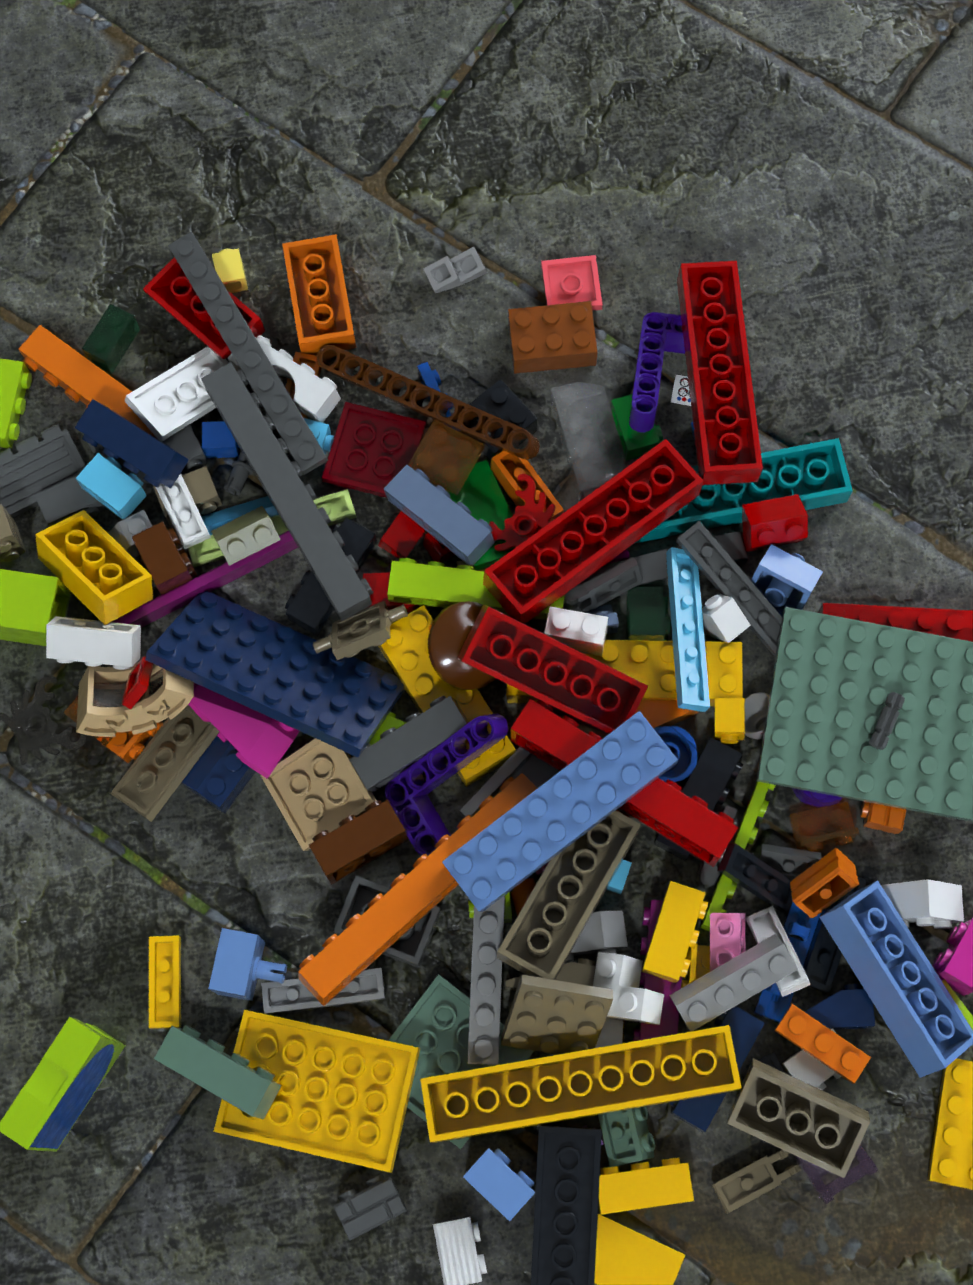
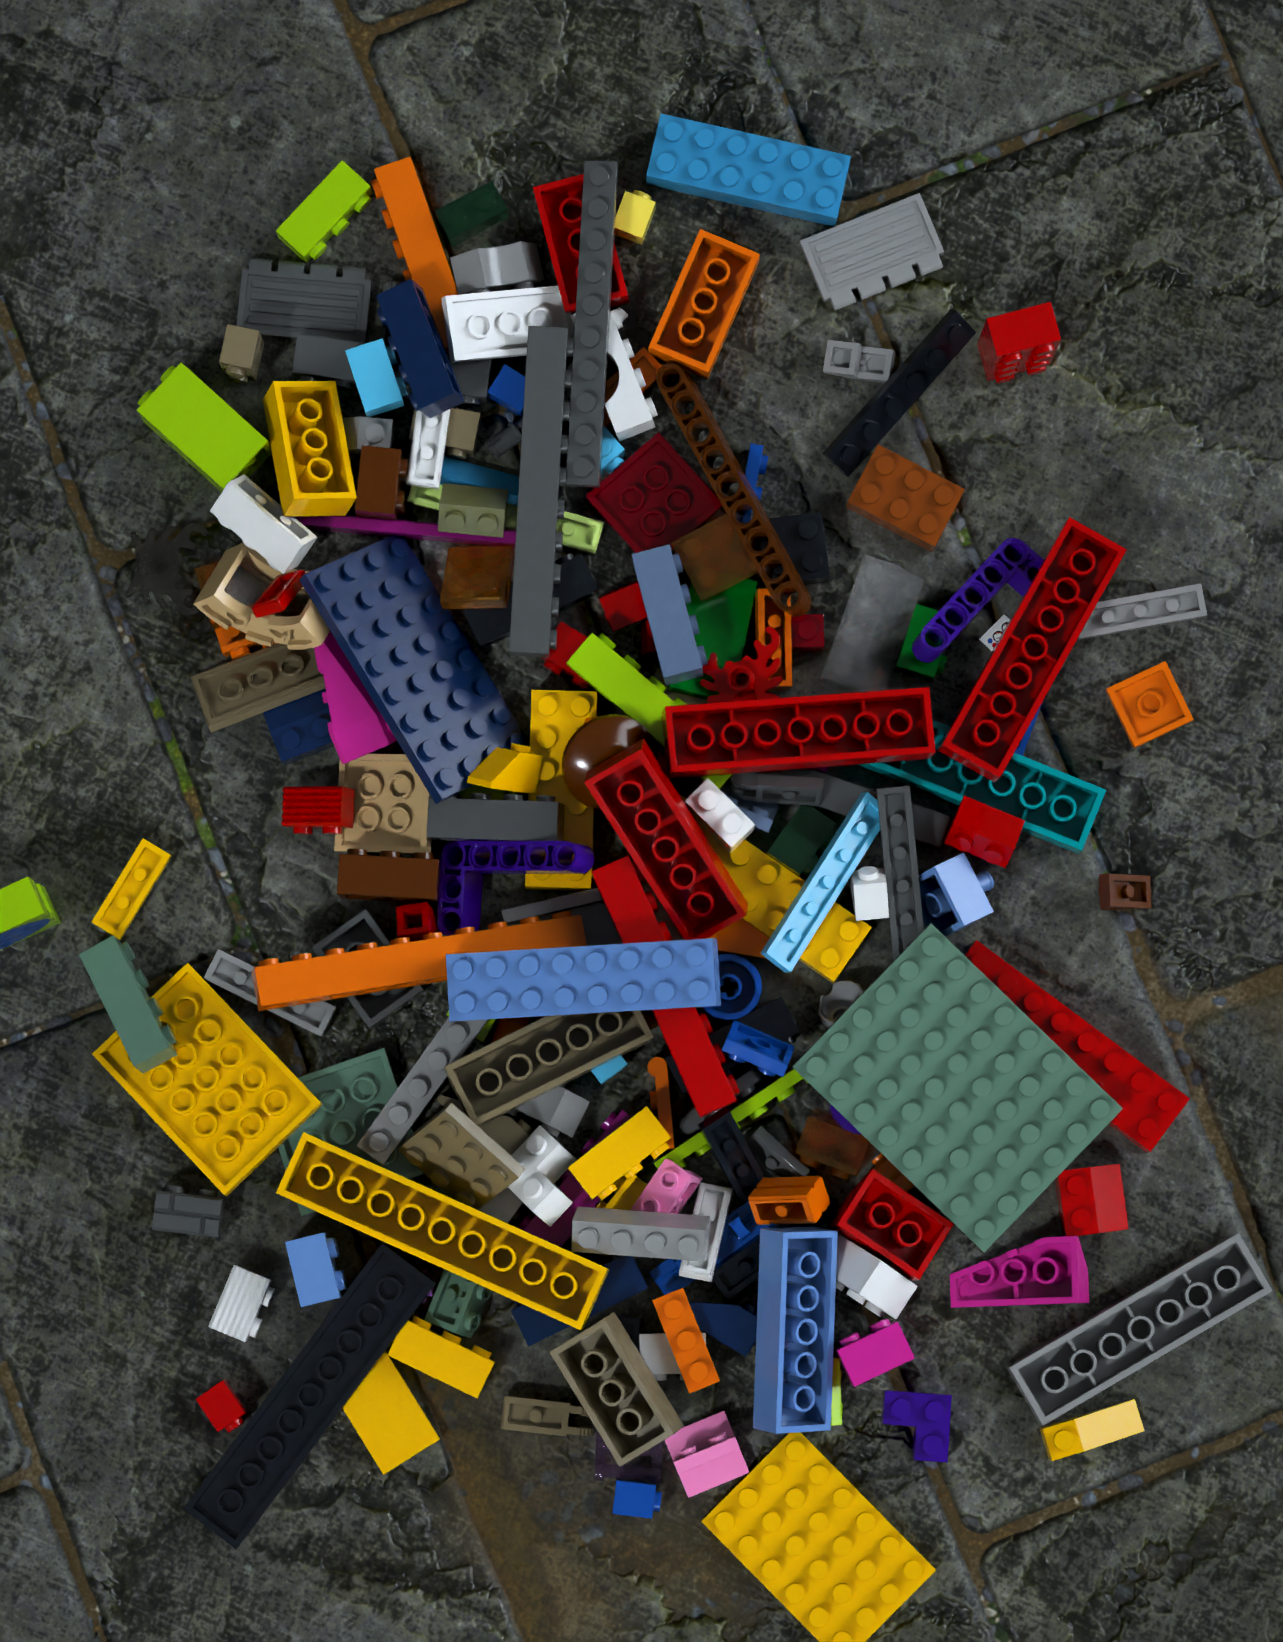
camera: 30 degrees right, 10 degrees up
(152, 360) = (498, 268): none -> light grey brick
(240, 964) = (209, 921): medium blue brick -> none
(270, 825) = (318, 808): none -> red brick
(280, 582) = (477, 577): none -> clear orange plate
(290, 191) = (748, 170): none -> dark azure brick
(360, 630) = (520, 679): dark tan plate -> none
(397, 700) = (509, 770): none -> yellow slope
(399, 859) = (416, 921): none -> red brick
(413, 192) = (872, 249): none -> light grey hinge
(498, 273) = (899, 392): none -> black plate
(549, 468) = (807, 633): none -> dark red brick
(560, 175) = (1019, 342): none -> red brick
(572, 281) = (963, 453): coral plate -> none
(672, 870) = (661, 1097): none -> orange plate
(714, 784) = (758, 1048): none -> blue plate
(729, 720) = (809, 992): yellow brick -> none
(777, 304) = (1145, 611): none -> light grey plate
(822, 368) = (1149, 704): none -> orange plate
(868, 1197) = (636, 1498): none -> blue brick
(886, 721) = (947, 1093): dark grey axle -> none
(897, 506) = (1124, 892): none -> reddish brown slope
(897, 1124) = (706, 1454): none -> bright pink bracket
(911, 850) = (891, 1225): none -> red slope

